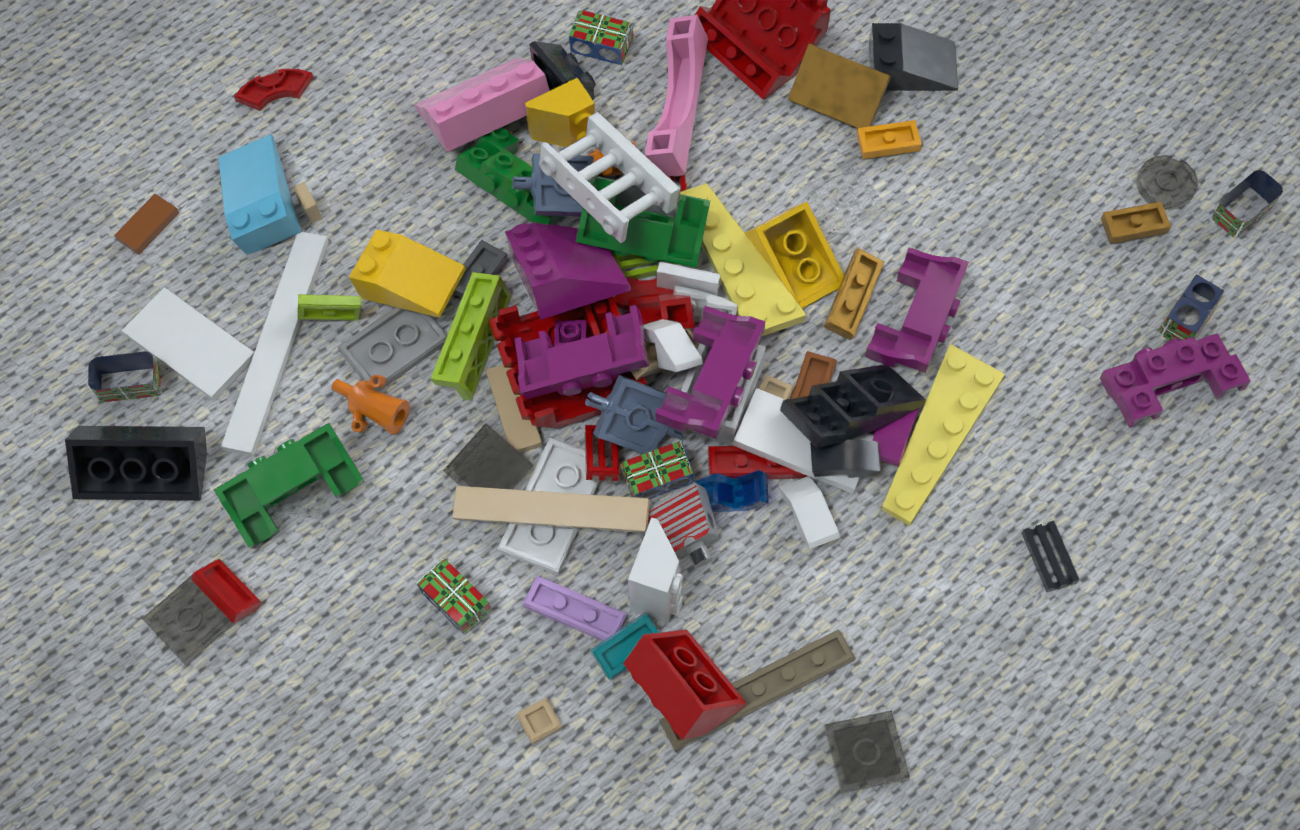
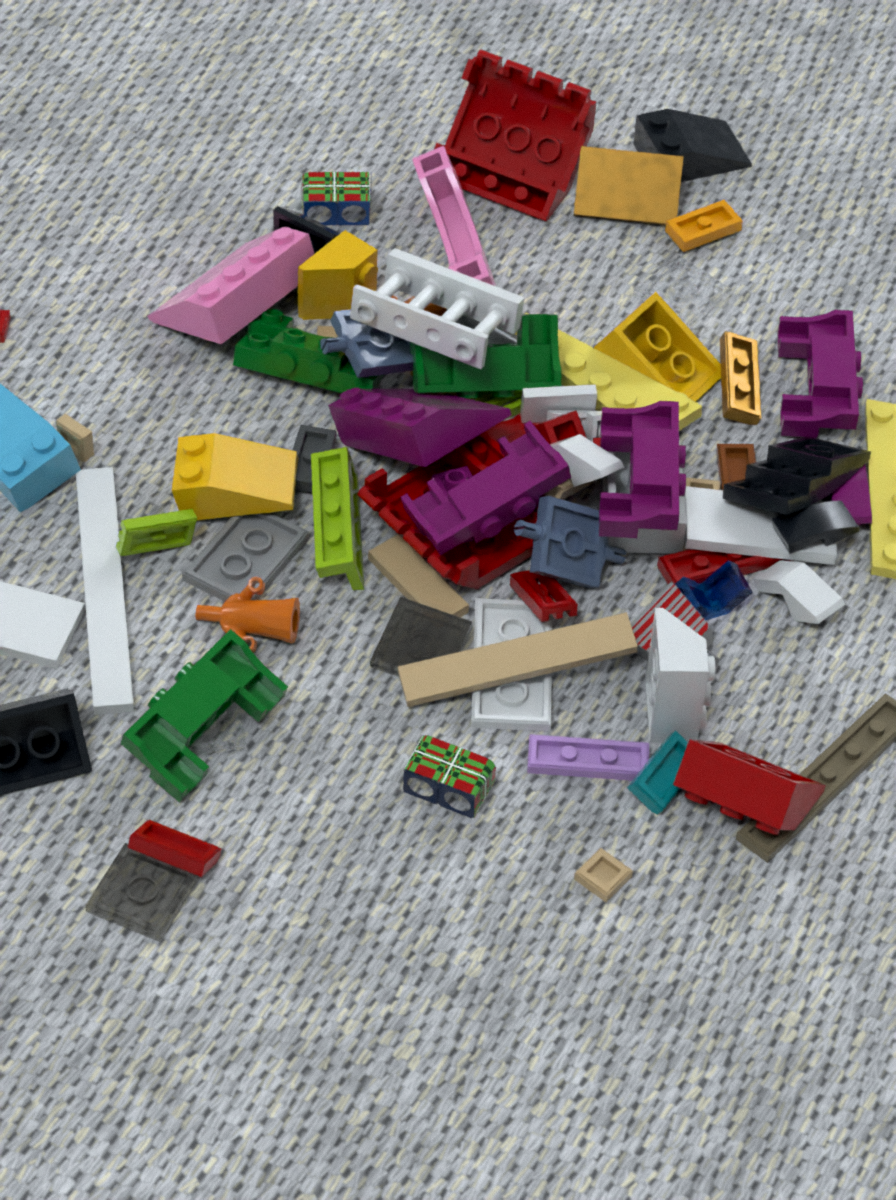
camera: 25 degrees left, 15 degrees down
(657, 468) = (615, 588): piece -> none

